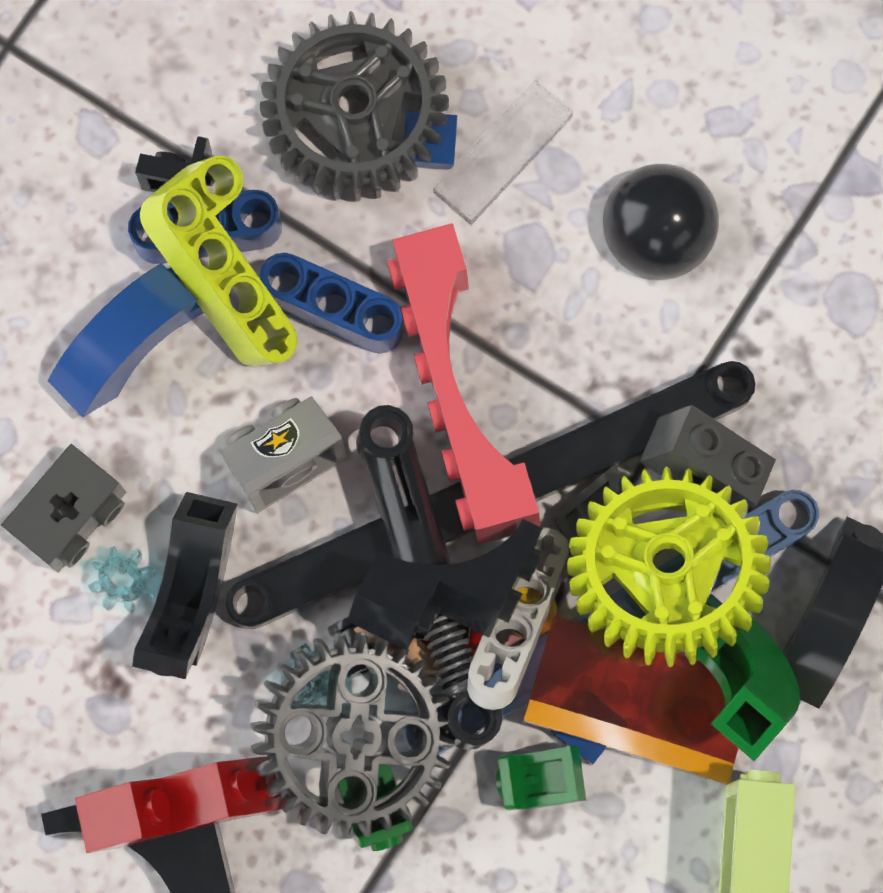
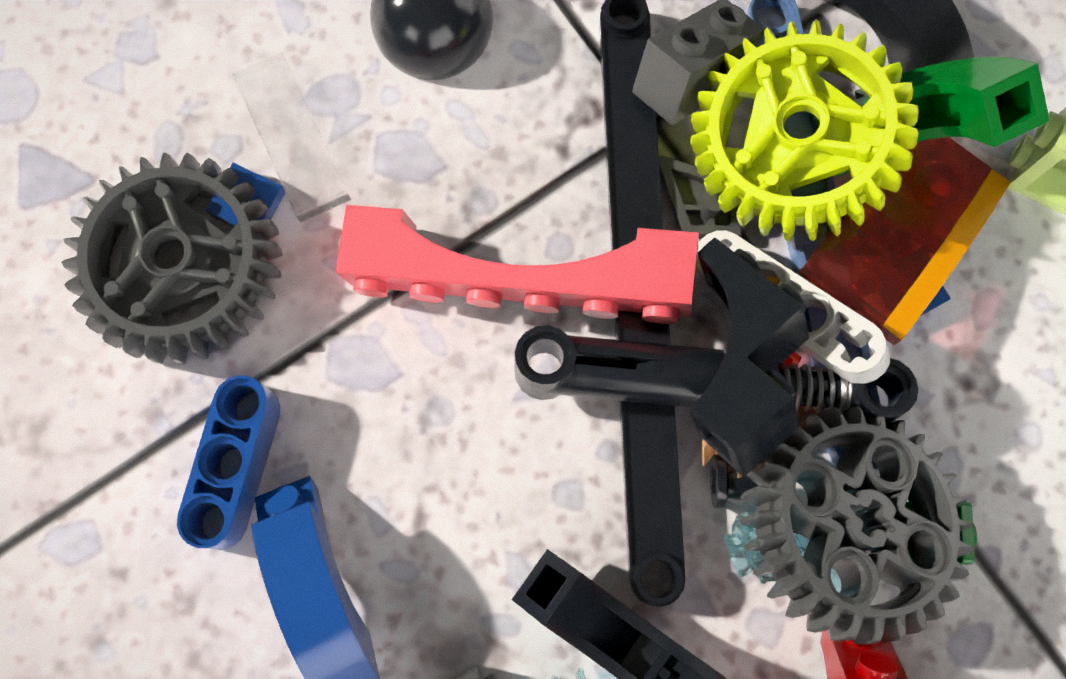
camera: 65 degrees left, 0 degrees up
(158, 169) = (157, 476): black bracket -> none
(259, 328) = (365, 449): neon yellow beam -> none
(283, 452) = (510, 476): light grey slope -> none
(319, 282) = (342, 369): blue beam -> none
(540, 778) = (950, 353): green bracket -> none

